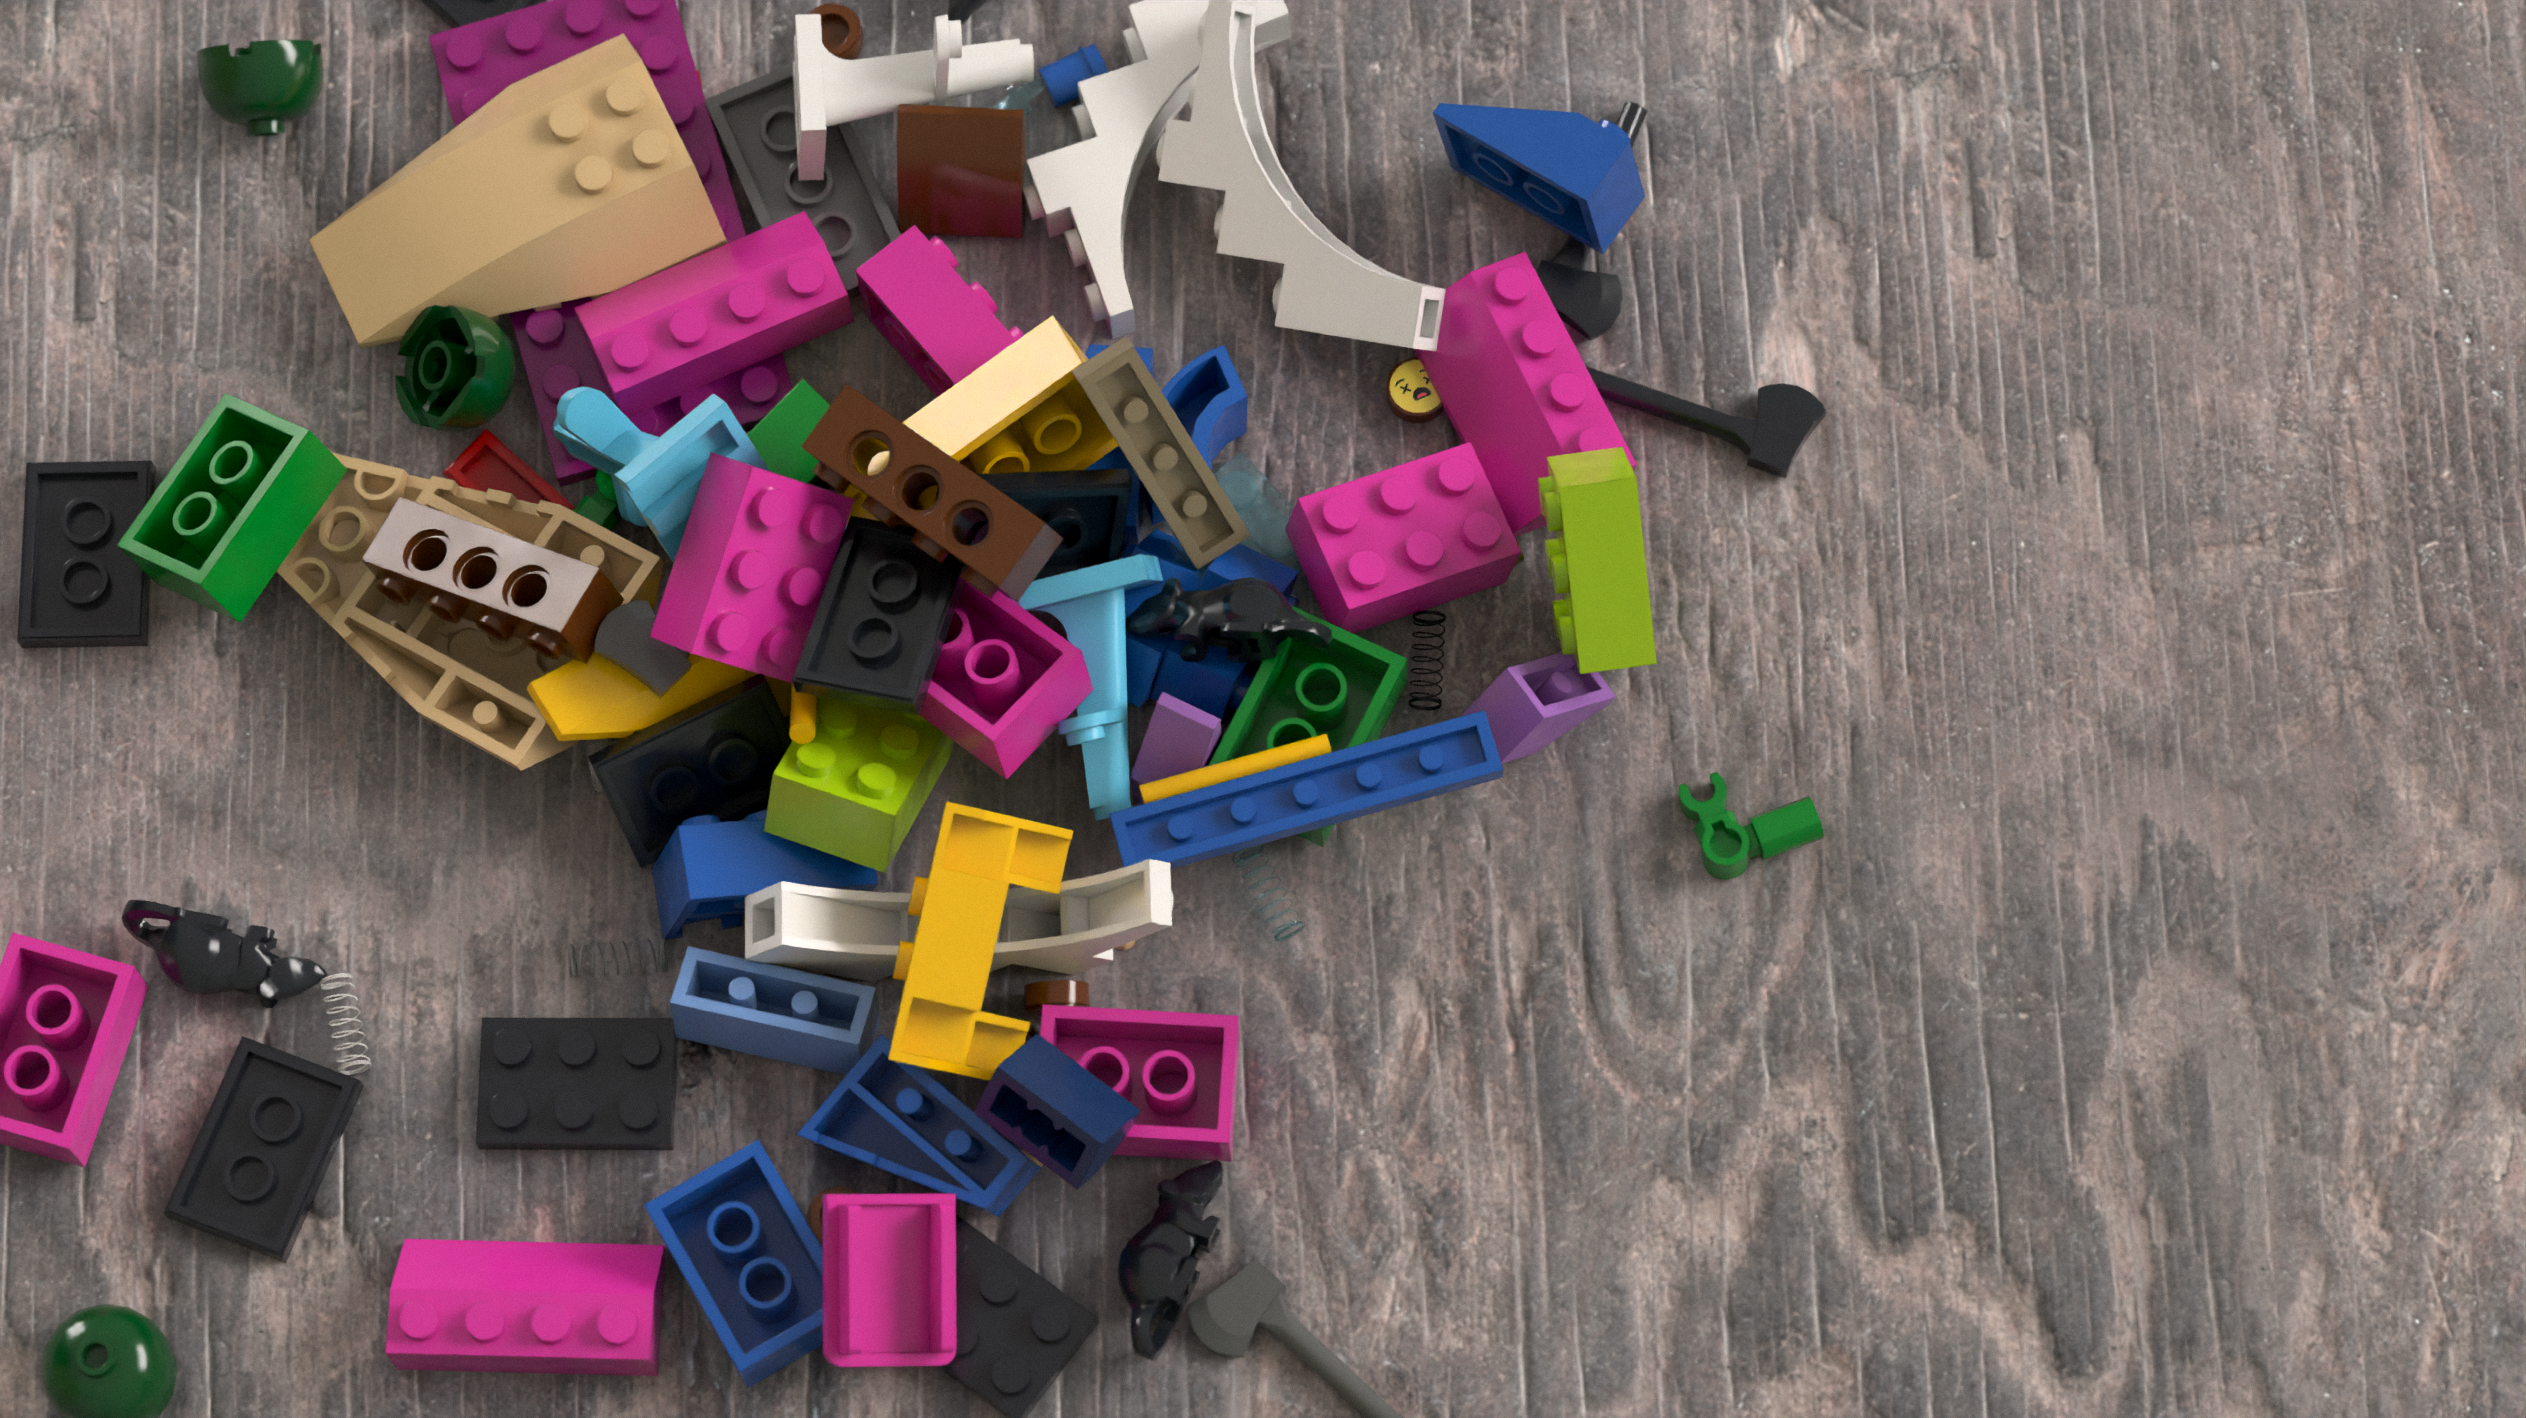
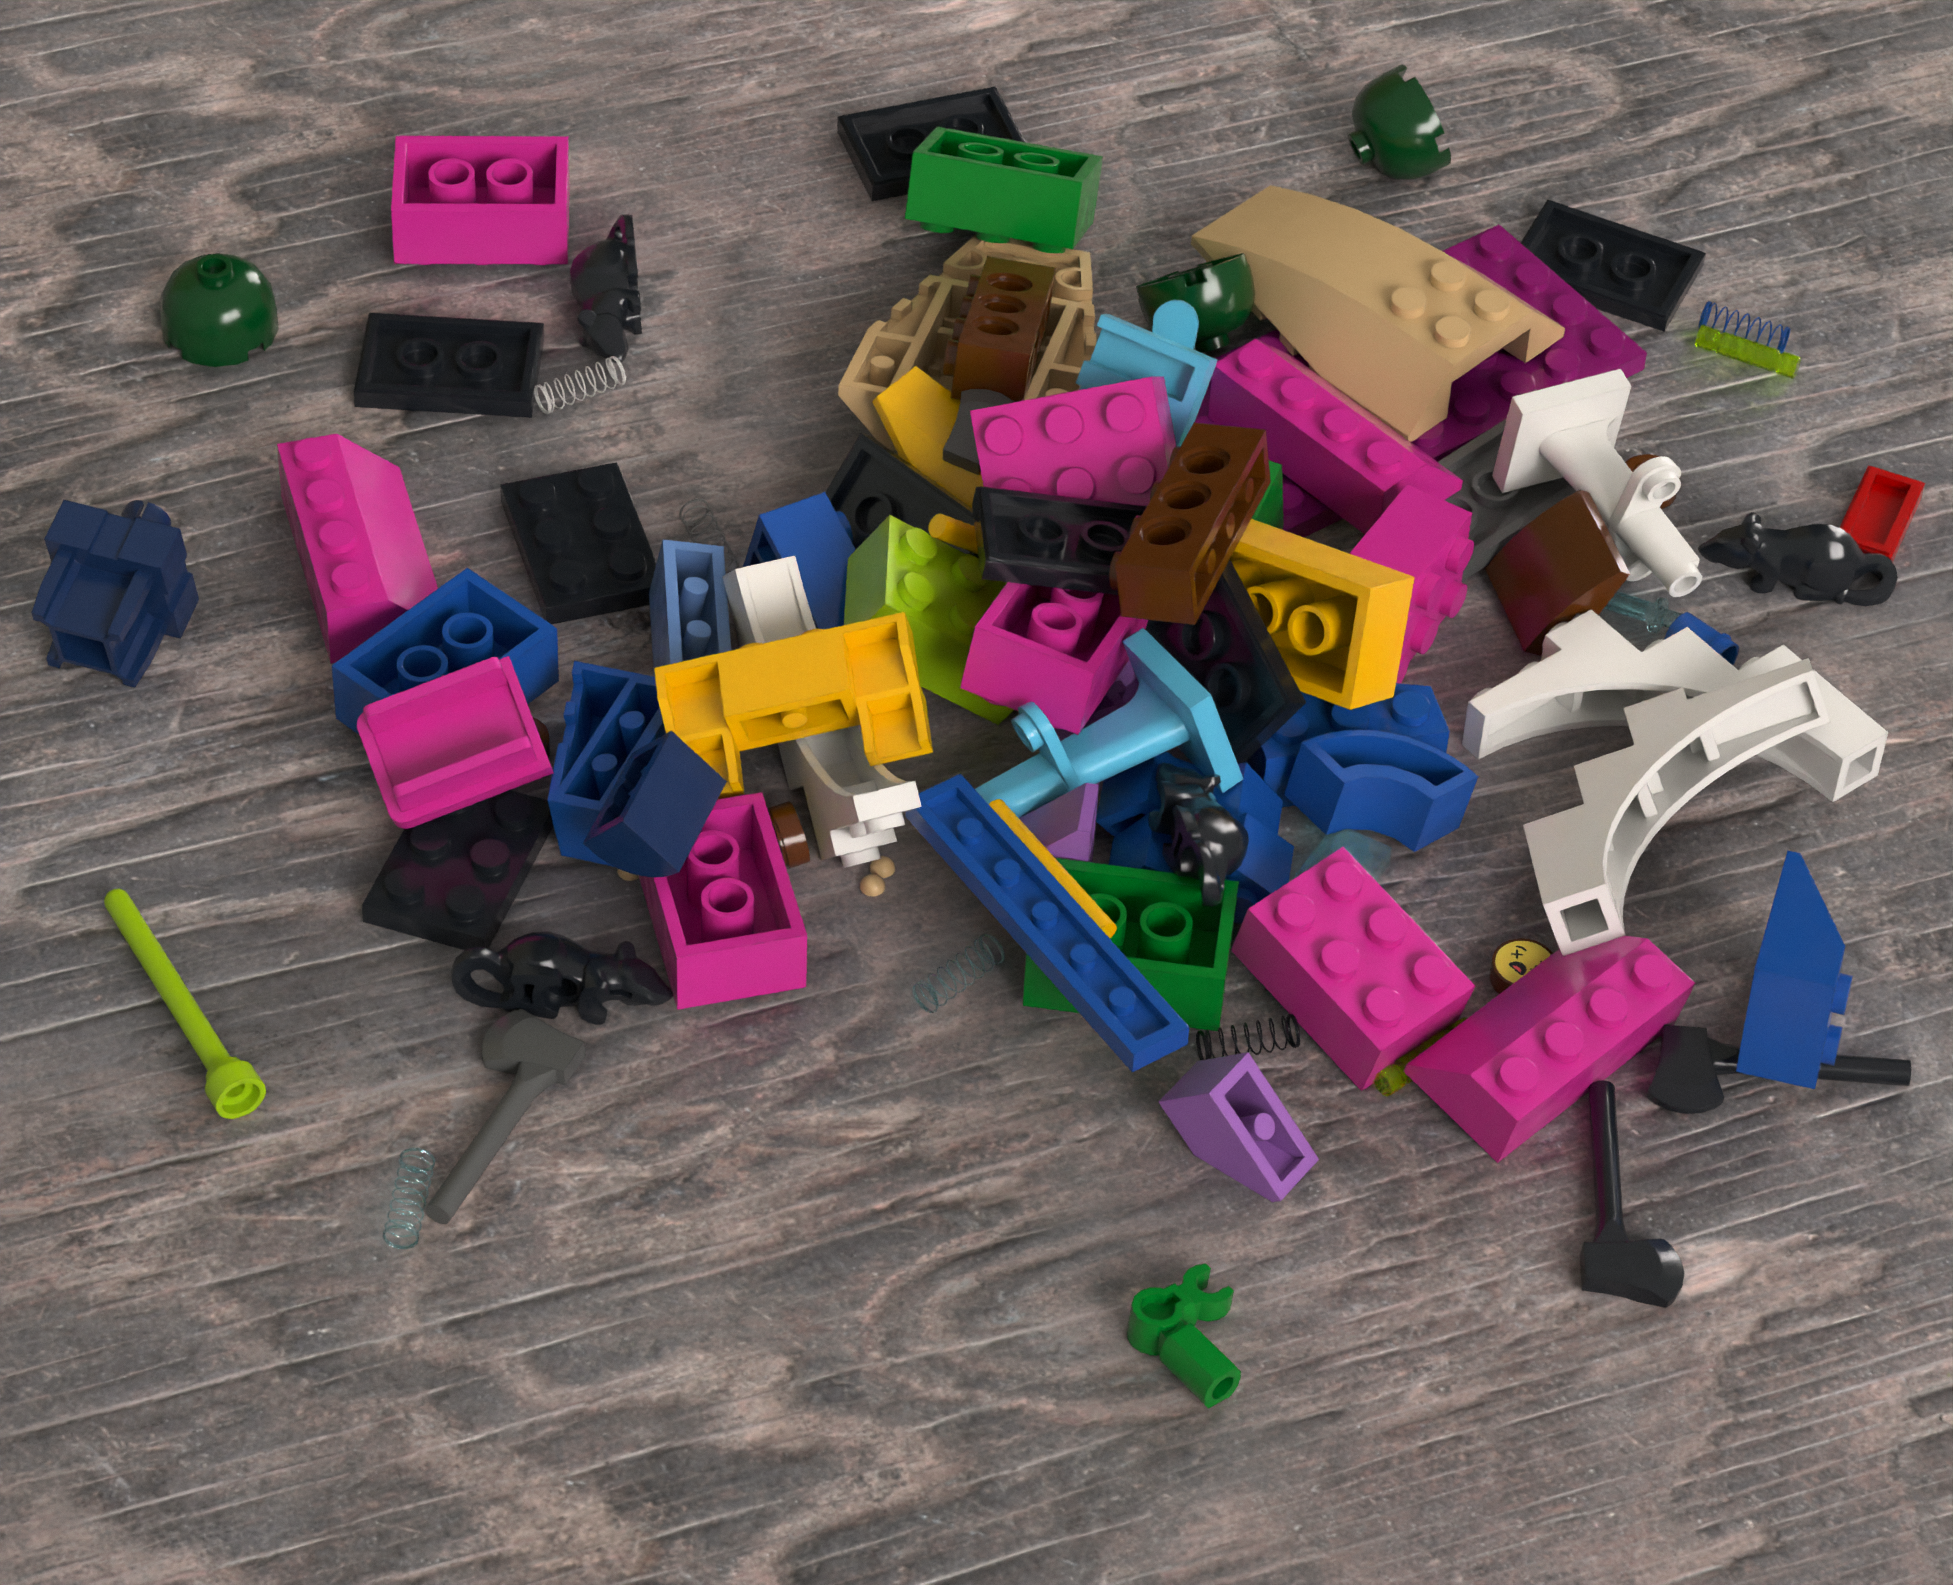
camera: 65 degrees right, 25 degrees down
(1161, 452) = (1327, 710): dark tan plate -> none
(1597, 560) = (1394, 1095): lime brick -> none

